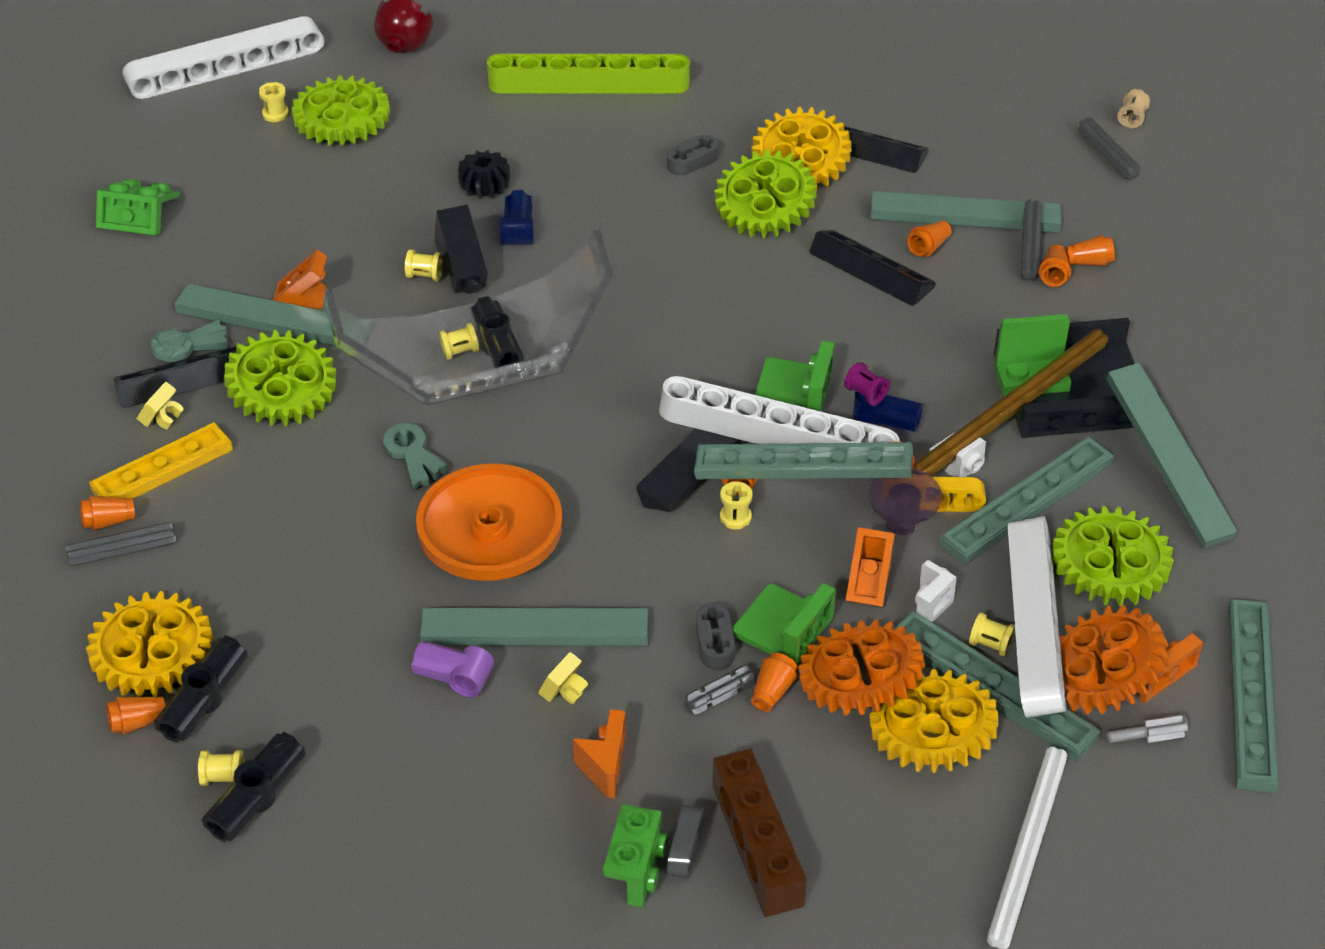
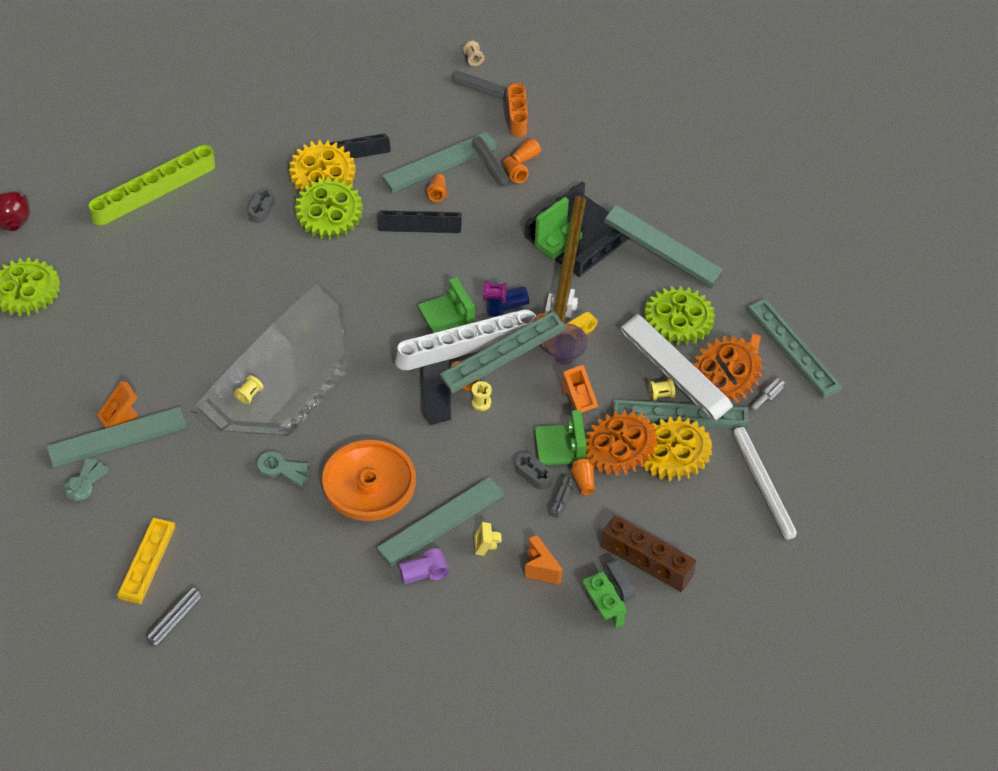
camera: 40 degrees left, 5 degrees up
(103, 512) = (145, 605): orange cone -> none
(122, 640) = (272, 646): yellow gear -> none
(132, 713) = (283, 698): orange cone -> none
(158, 406) = (111, 526): light yellow tile -> none
(182, 375) = (101, 502): black slope -> none
(200, 689) = (309, 673): black piece -> none
(218, 766) = (360, 694): light yellow bush -> none
(253, 787) = (389, 703): black piece -> none
(280, 377) = (146, 463): lime gear -> none
(423, 265) = (177, 356): light yellow bush -> none
(460, 249) = (194, 336): black slope -> none
(483, 174) = (155, 281): black gear -> none
(496, 332) = (272, 373): black piece -> none
(517, 222) = (205, 301): clear blue piece -> none
(935, 591) = (617, 380): white bracket -> none
(1026, 500) = (612, 310): sand green tile -> none
(1128, 197) = (517, 110): none -> orange beam

